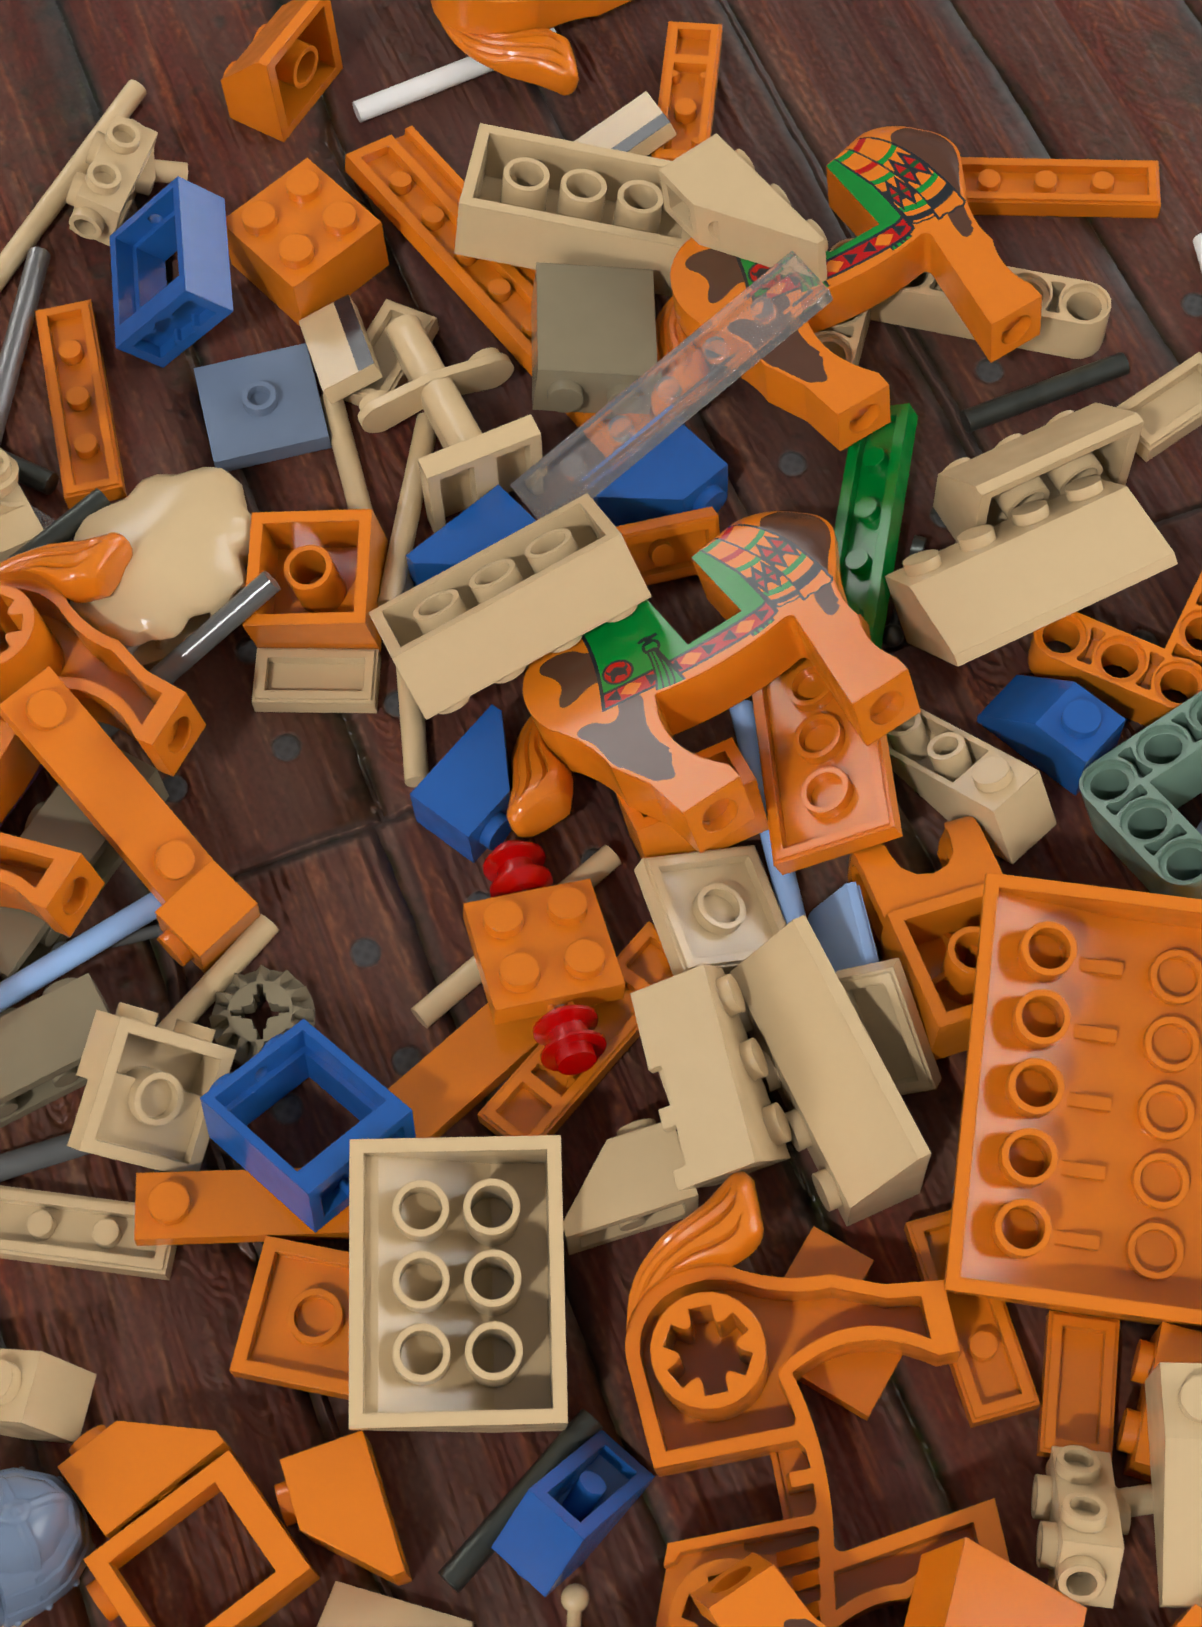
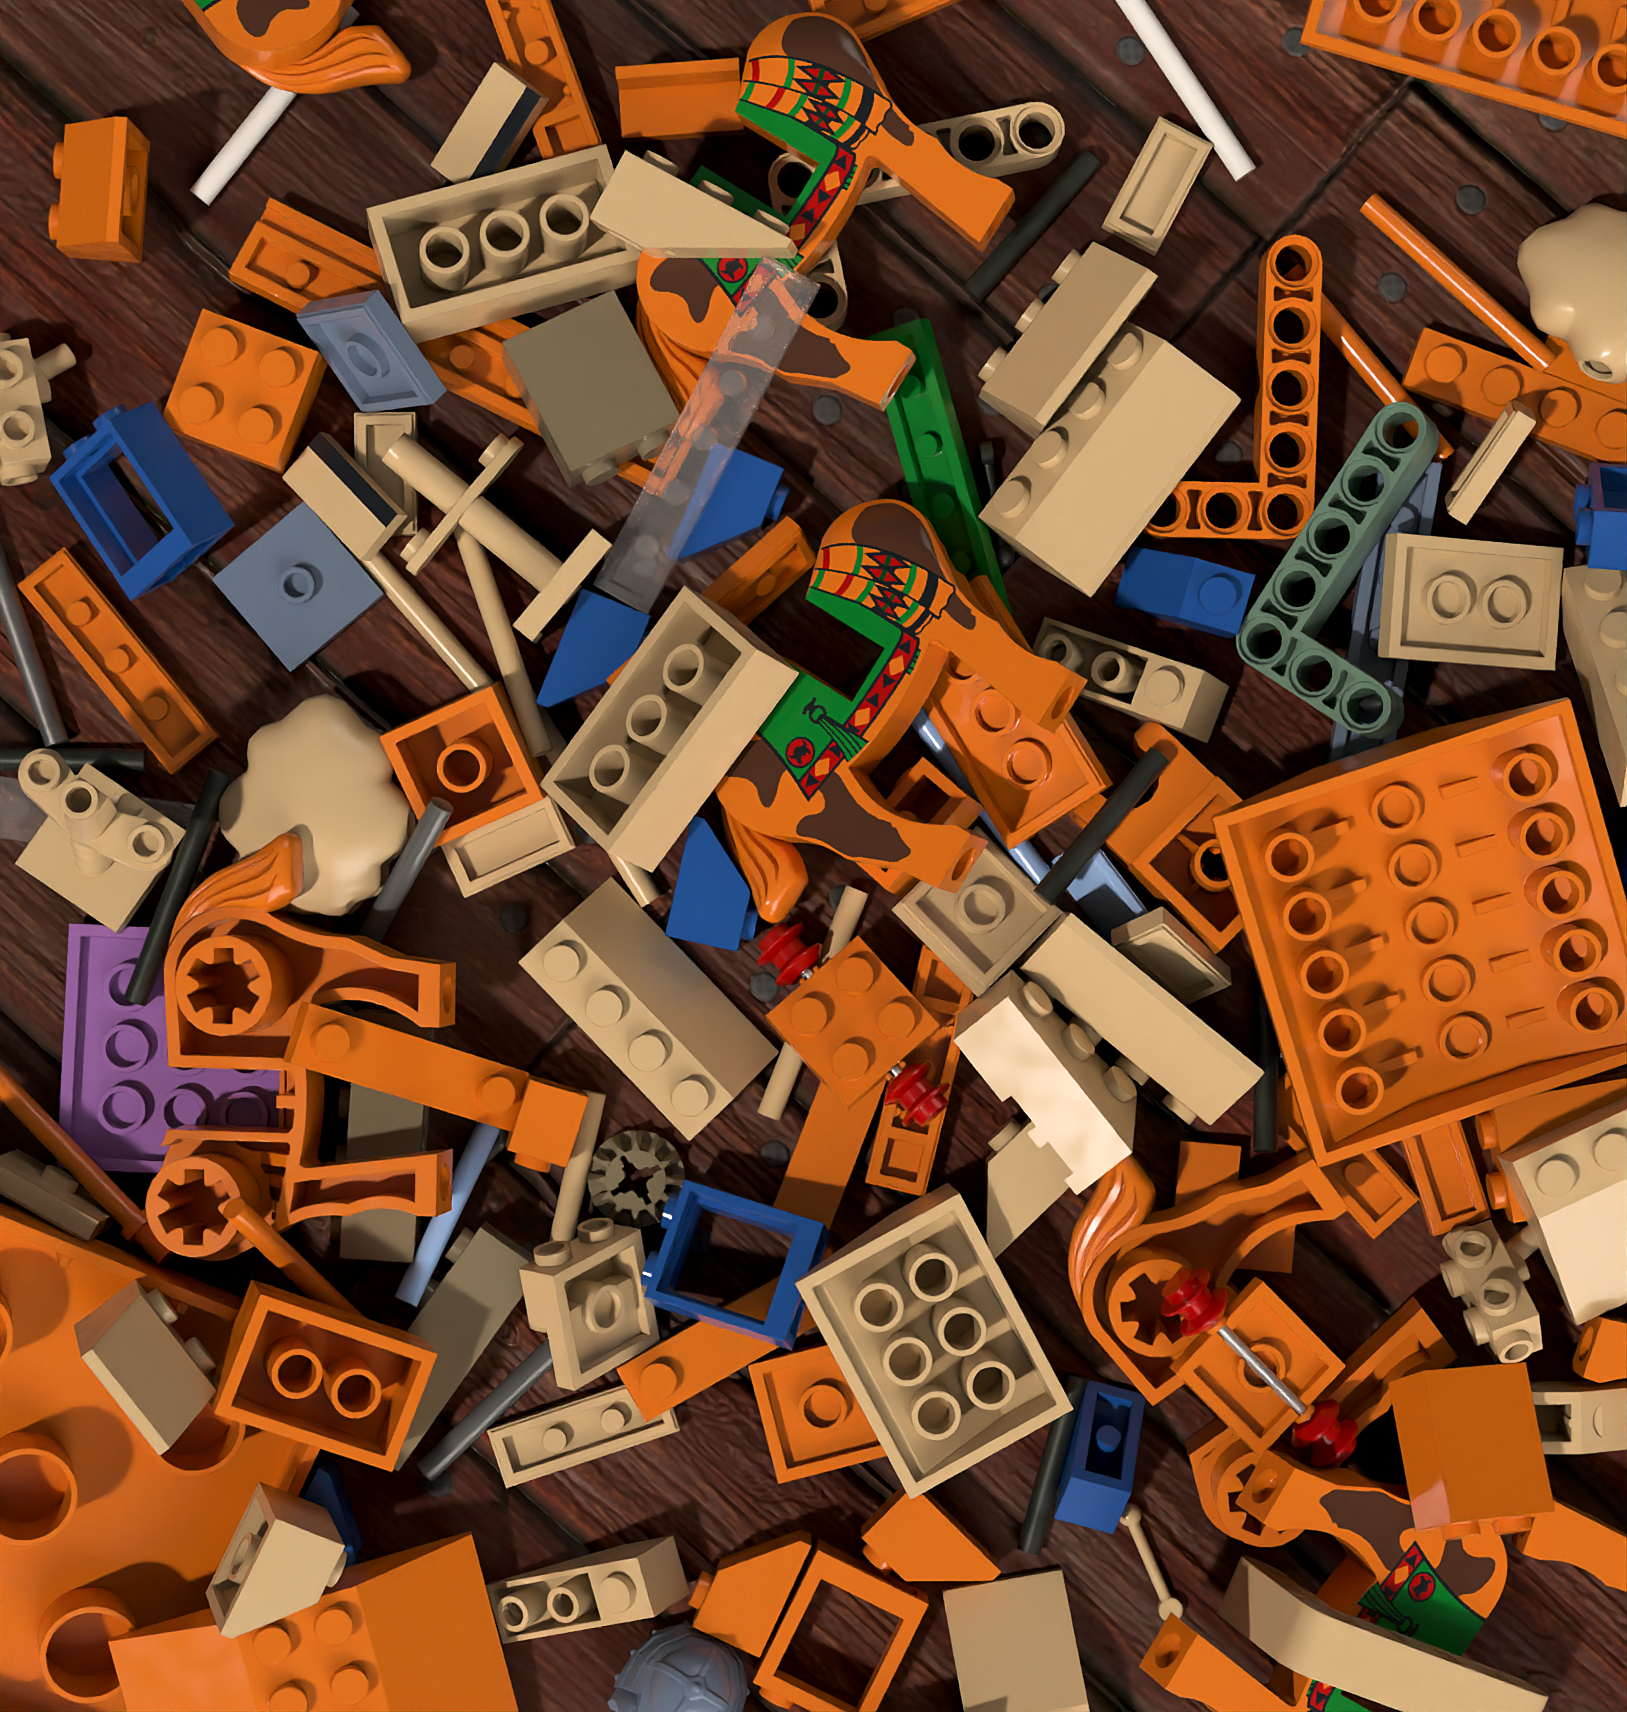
camera: 35 degrees left, 25 degrees up
(361, 866) = (649, 1008): none -> tan slope
(424, 235) = (370, 352): none -> sand blue plate
(786, 1461) = (1258, 1367): none -> orange plate
(795, 167) = (679, 100): none -> orange panel
(872, 869) = (1101, 826): none -> pearl dark grey bar
(925, 1206) = (1266, 1088): none -> pearl dark grey bar

